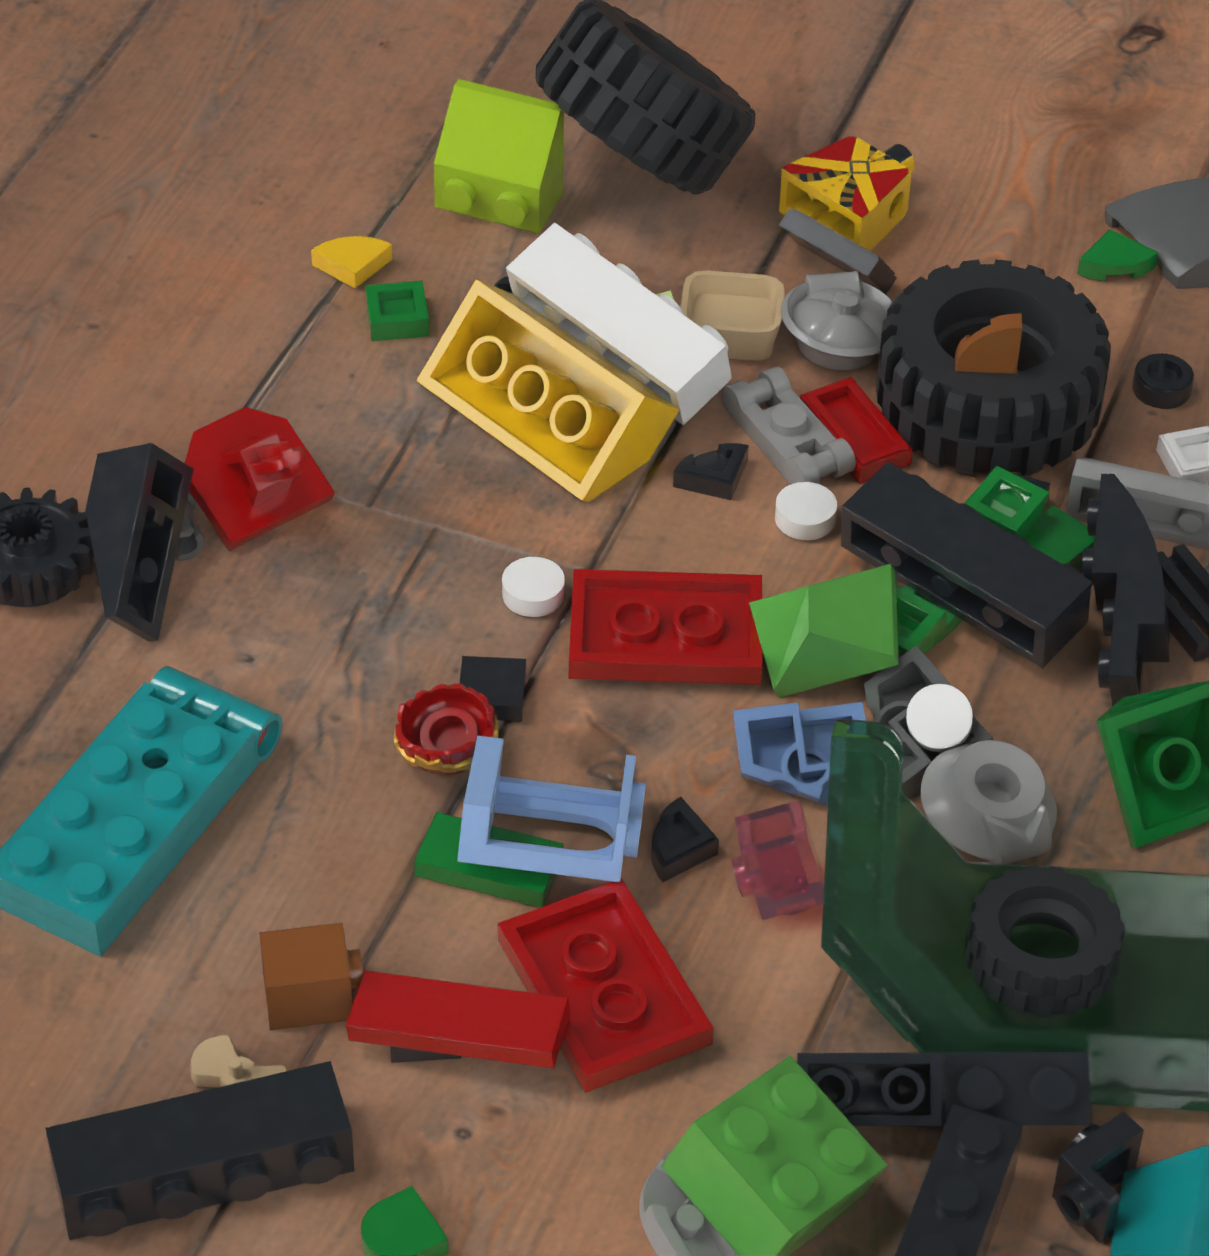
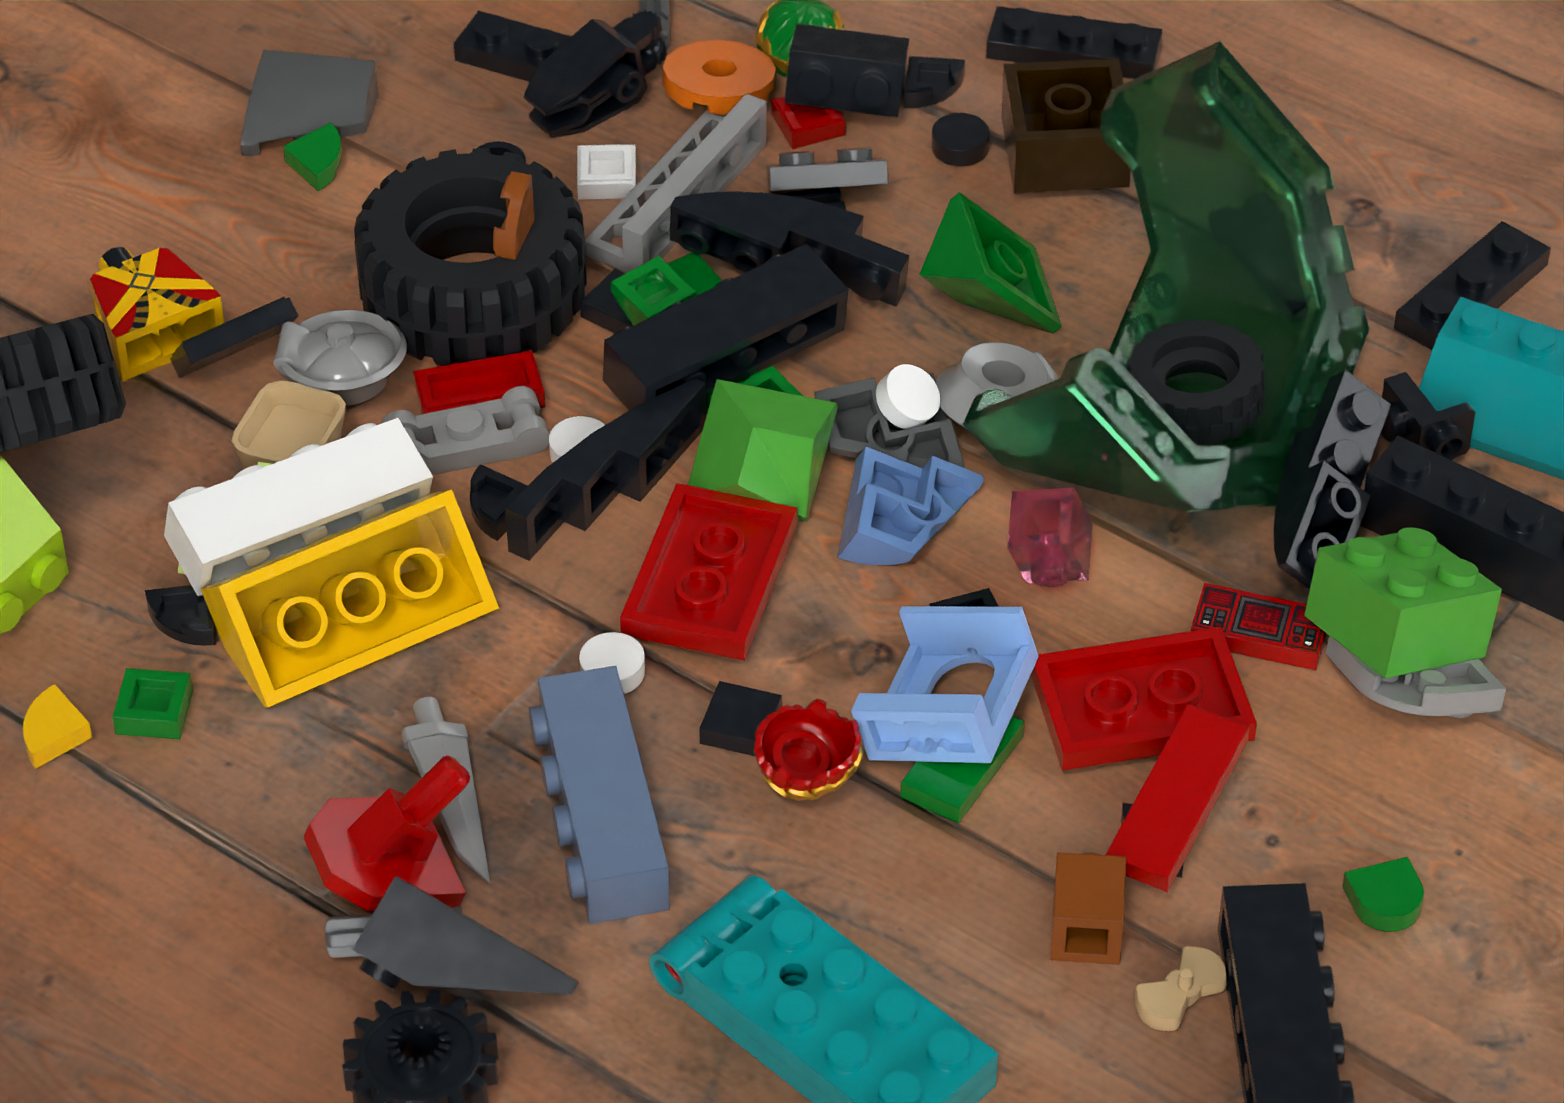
camera: 75 degrees left, 0 degrees up
(358, 602) = (602, 795): none -> sand blue brick
(376, 502) = (427, 745): none -> light grey bar
(744, 1049) = (1261, 625): none -> tile
(748, 516) = (617, 458): none -> black slope

